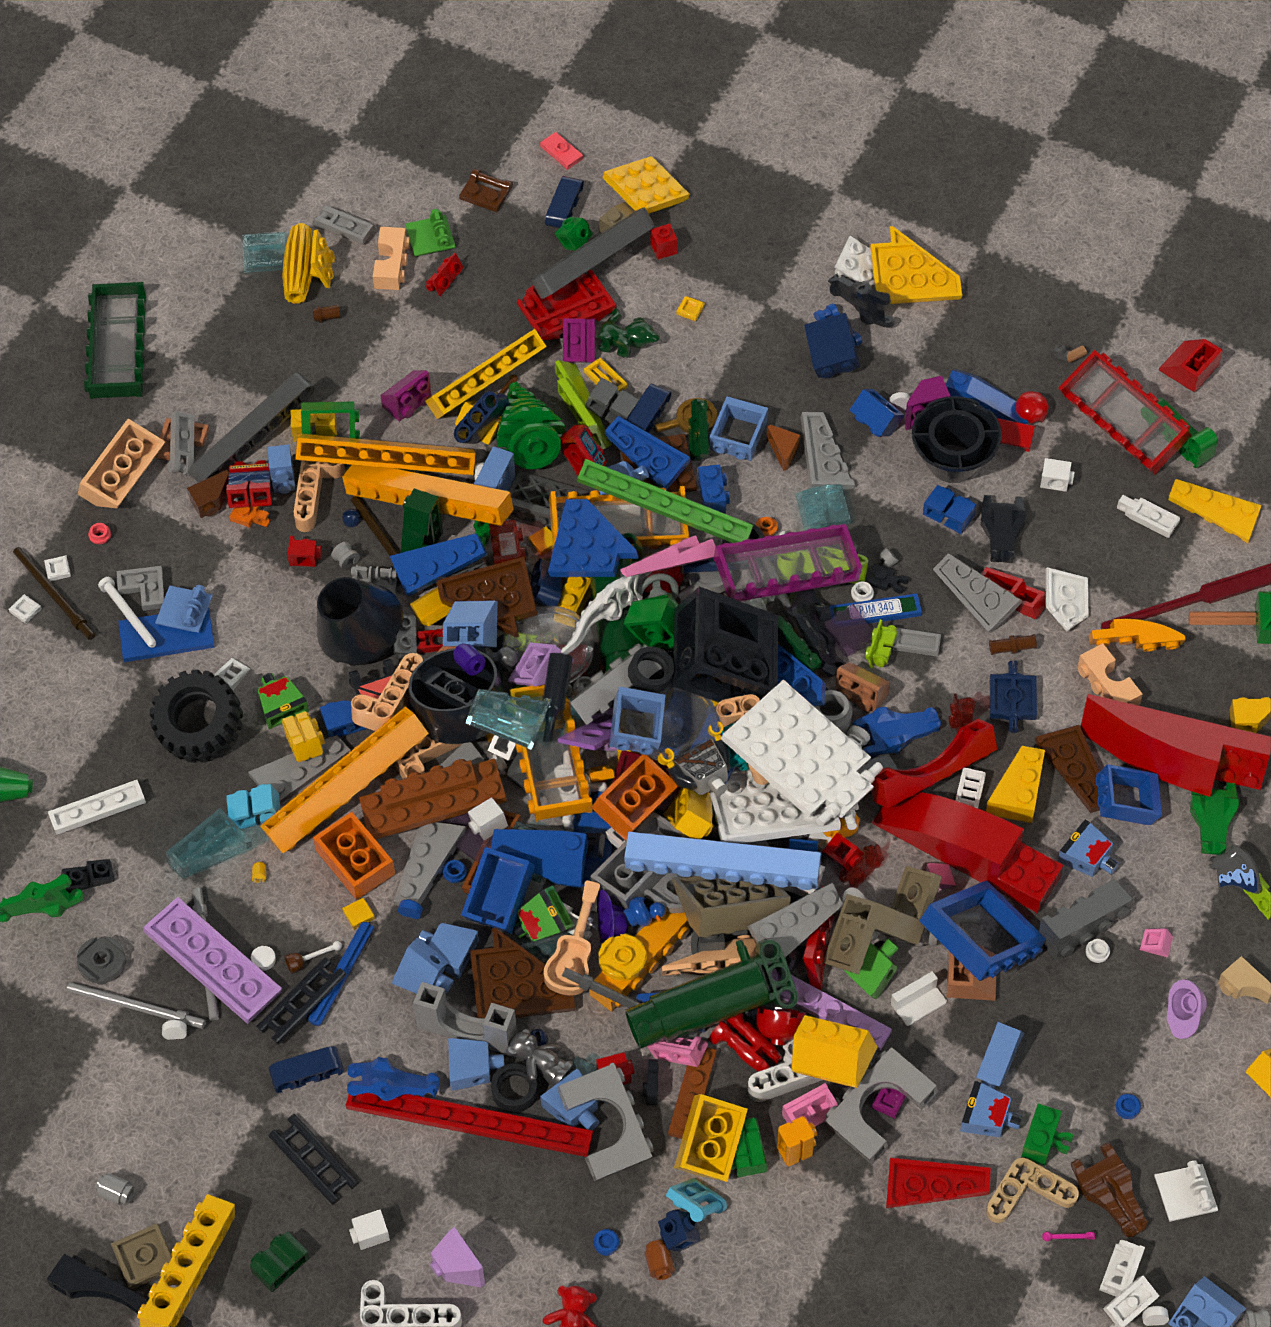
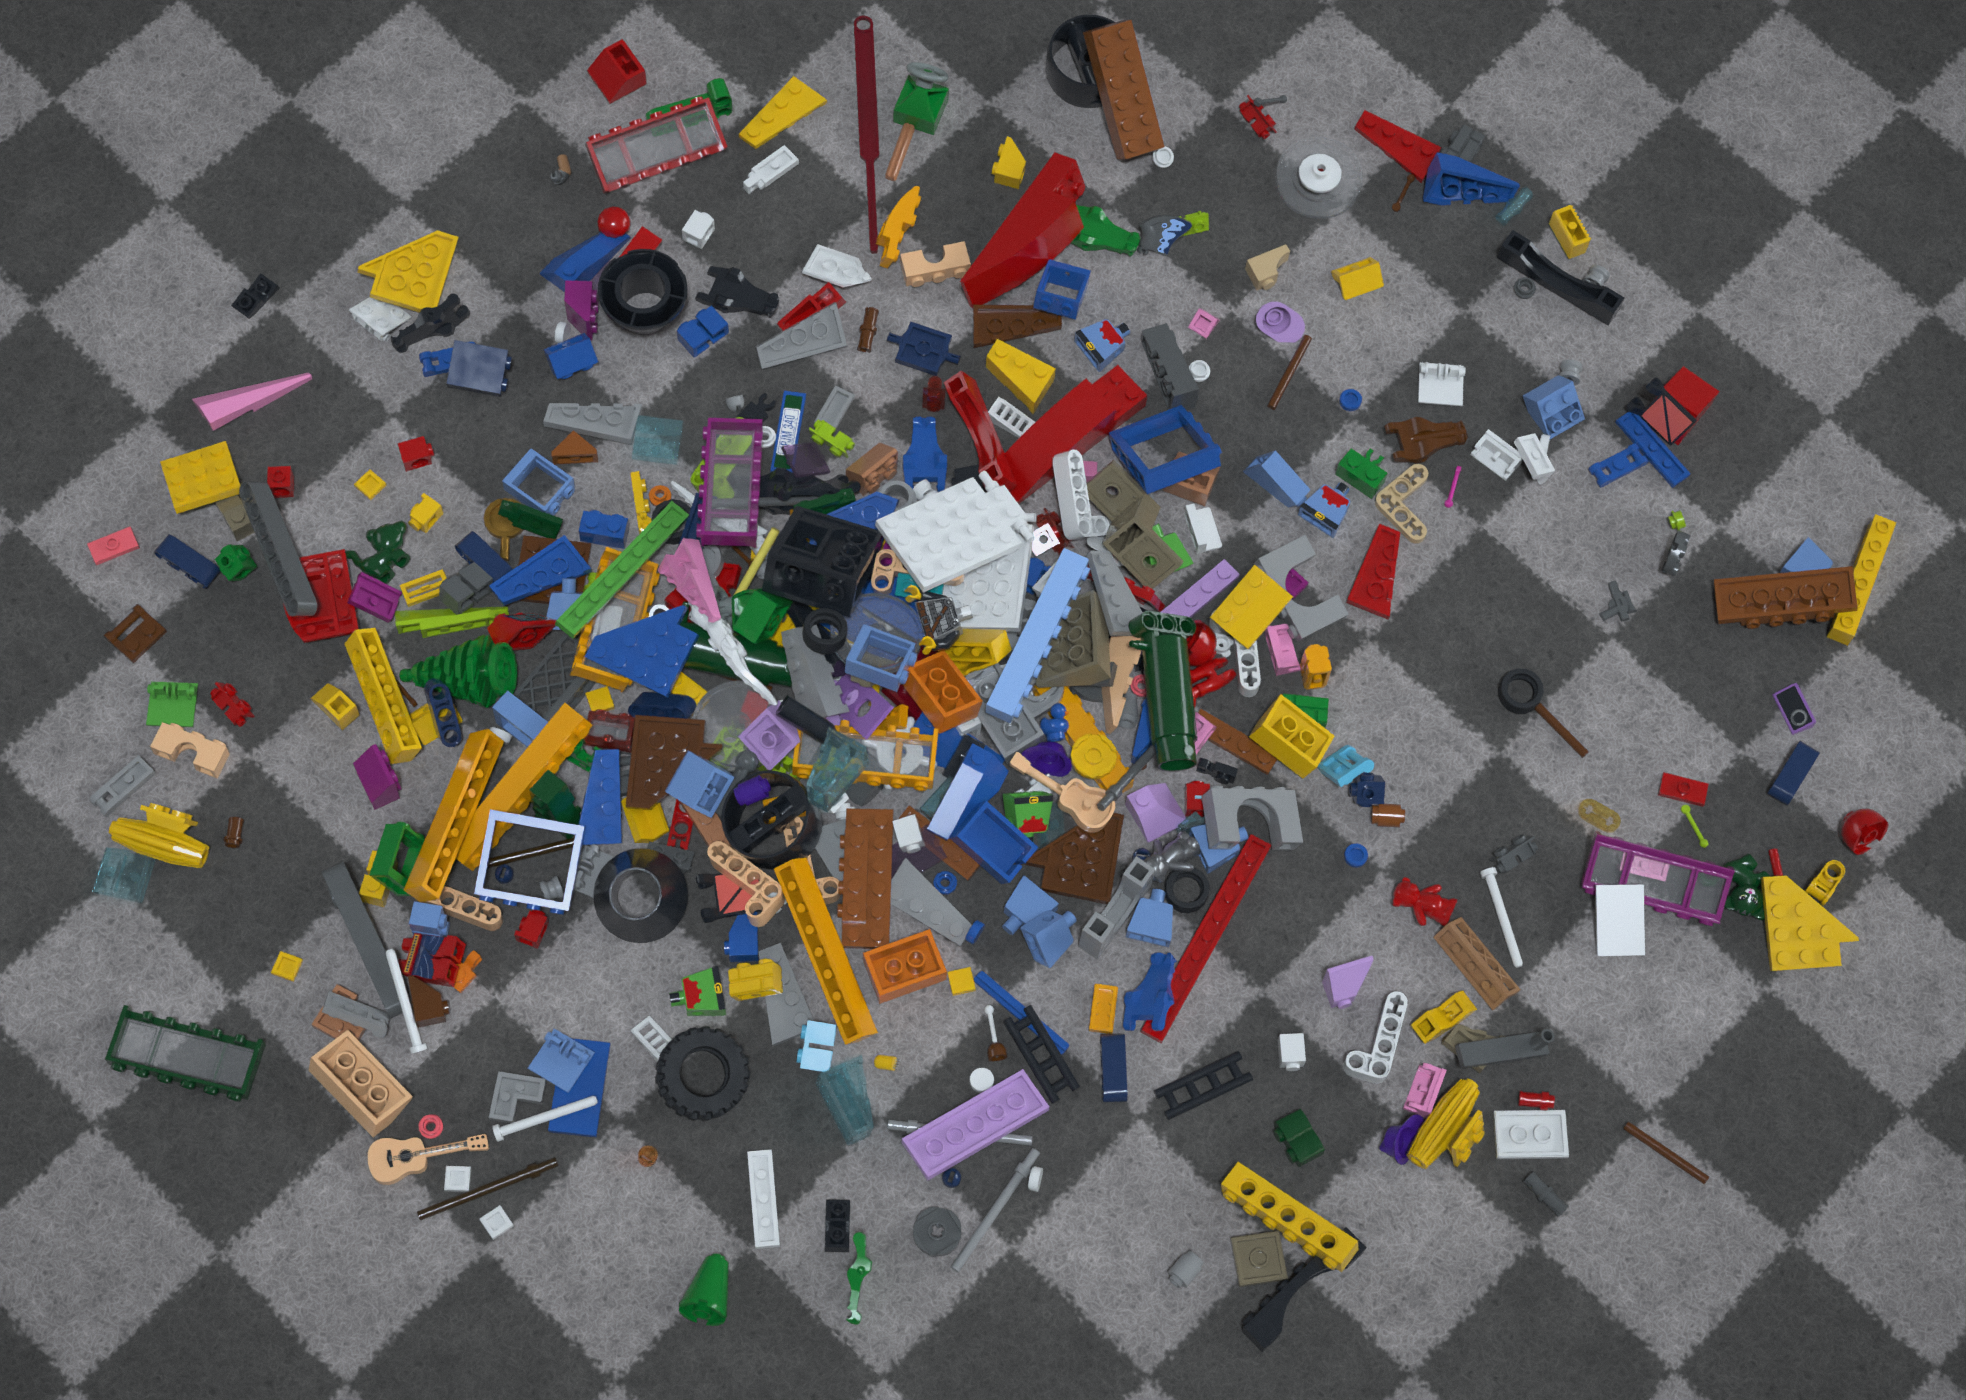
camera: 80 degrees left, 10 degrees up
(62, 517) = (395, 1159): none -> light nougat piece
(108, 701) = (650, 1153): none -> clear orange hinge
(158, 962) = (956, 1180): none -> dark blue hinge
(203, 473) = (404, 1002): none -> white bar
(217, 388) = (286, 966): none -> yellow tile
(365, 1044) = (1103, 1008): none -> light orange plate
(391, 547) = (532, 902): none -> window
(465, 345) = (336, 705): none -> yellow slope
(590, 1034) = (1154, 810): none -> lavender slope
(675, 354) = (425, 514): none -> yellow brick
(721, 181) = (228, 405): none -> bright pink wedge
(731, 328) = (415, 453): none -> red brick
(756, 508) = (641, 504): none -> yellow hinge
(833, 170) = (254, 298): none -> black slope
(898, 862) = (1074, 498): none -> white beam
(1135, 1038) = (1289, 372): none -> reddish brown bar

